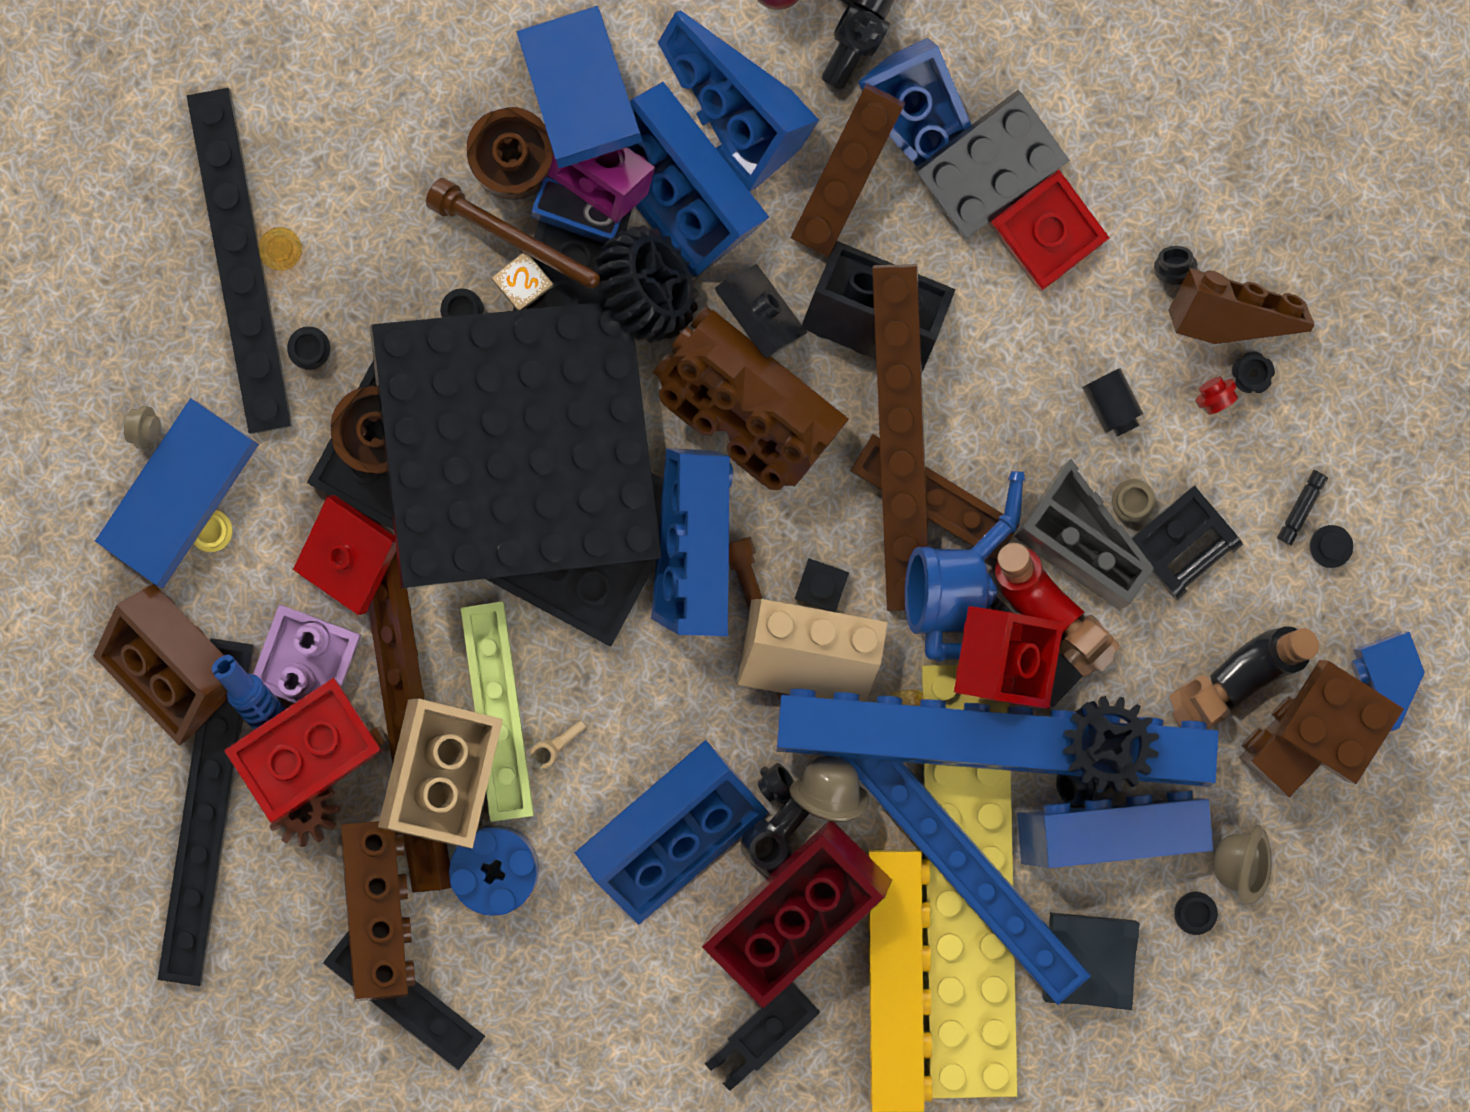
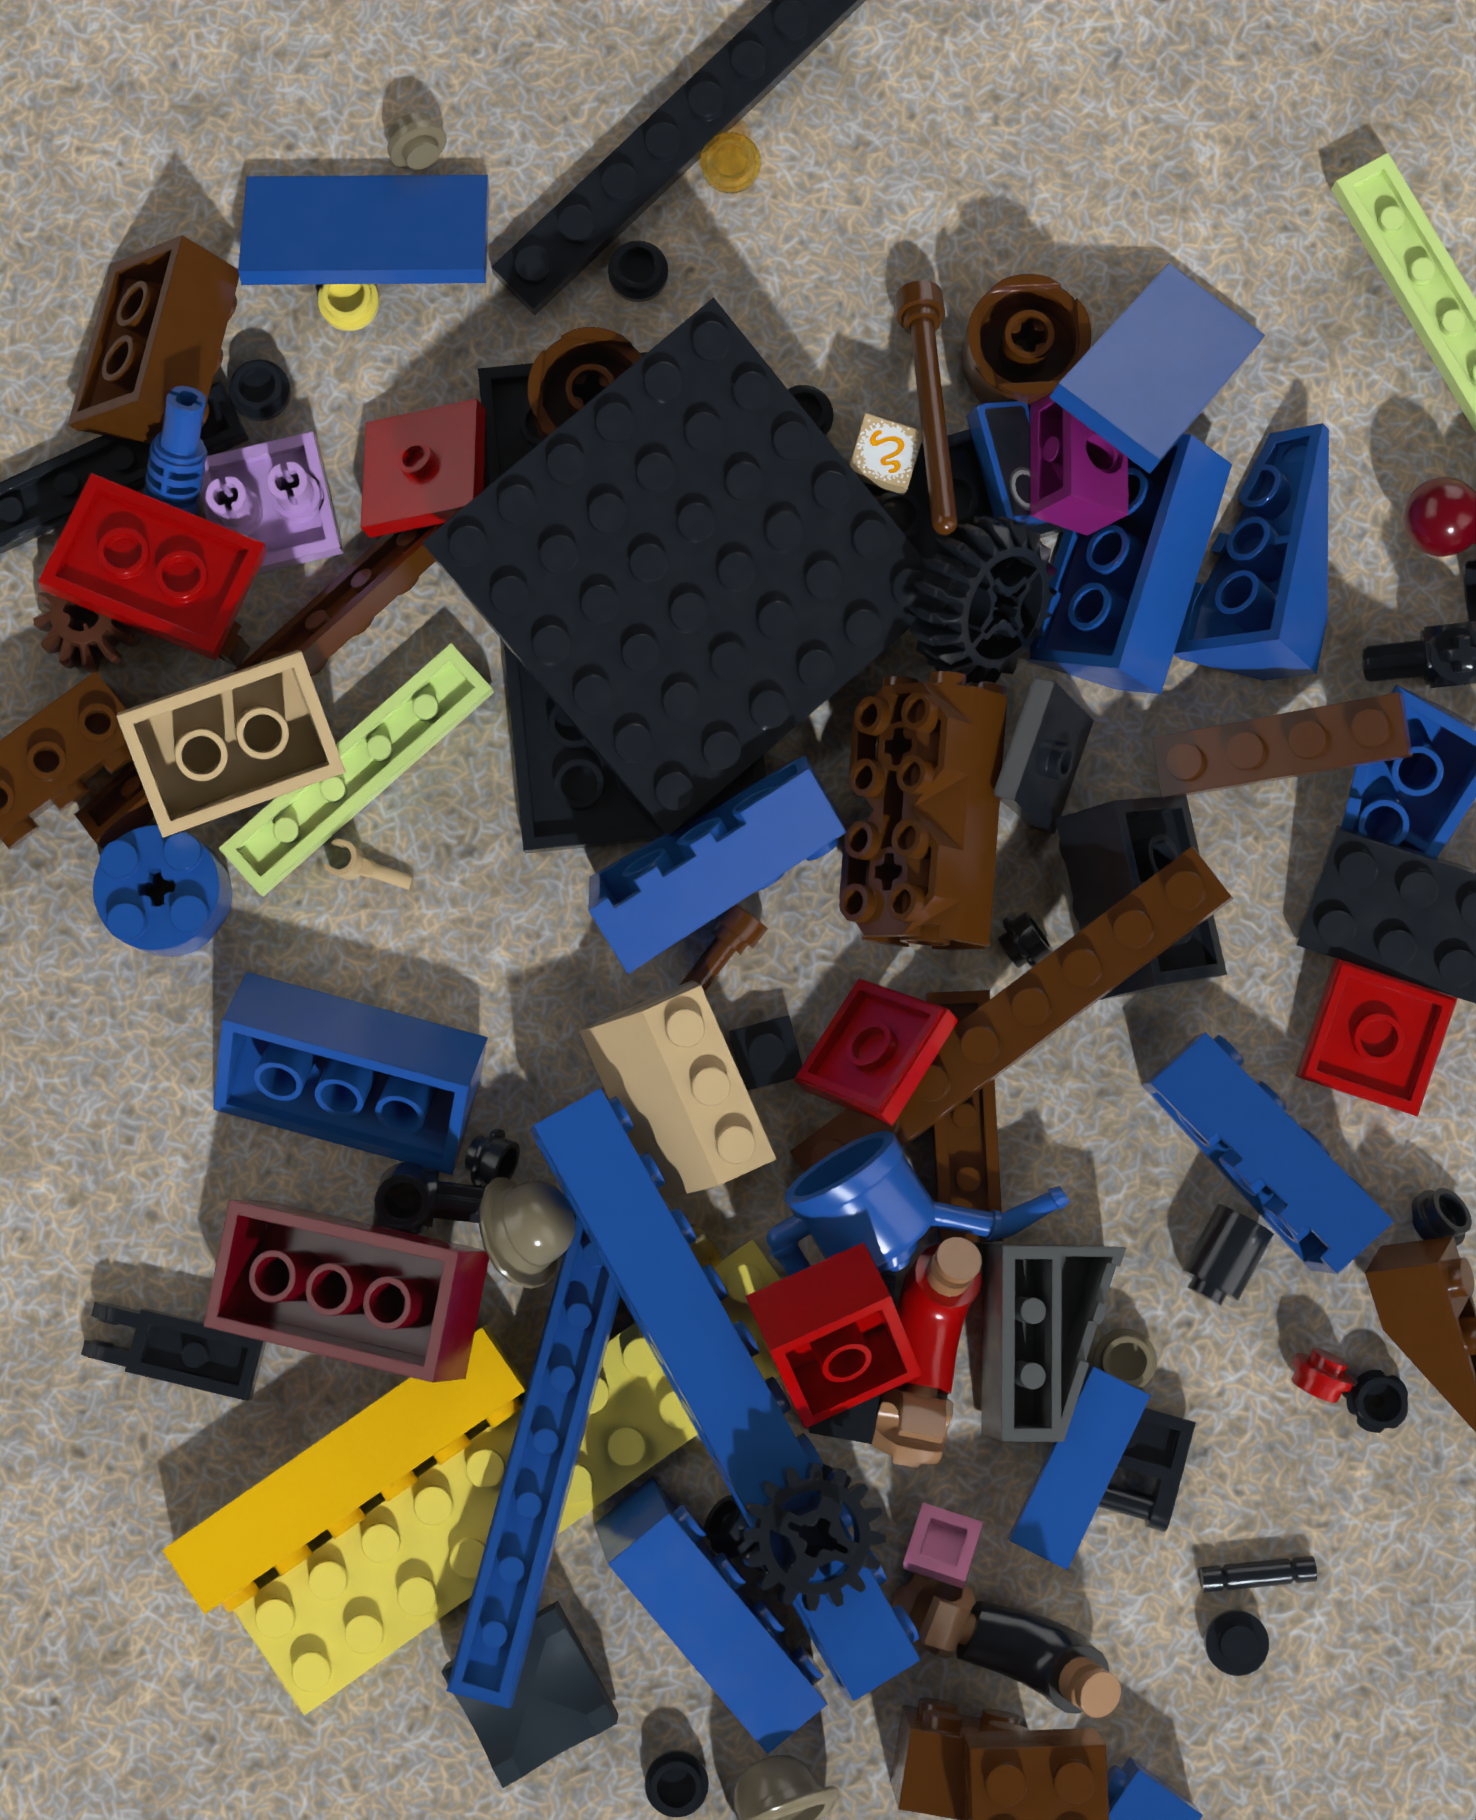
camera: 50 degrees right, 5 degrees down
(230, 618) = (259, 390): none -> black plate
(858, 393) = (1024, 941): none -> black plate
(864, 523) = (876, 1051): none -> red plate
(1071, 341) = (1267, 1154): none -> blue wedge
(1166, 674) = (943, 1545): none -> bright pink plate
(1175, 568) = (1079, 1468): none -> blue tile

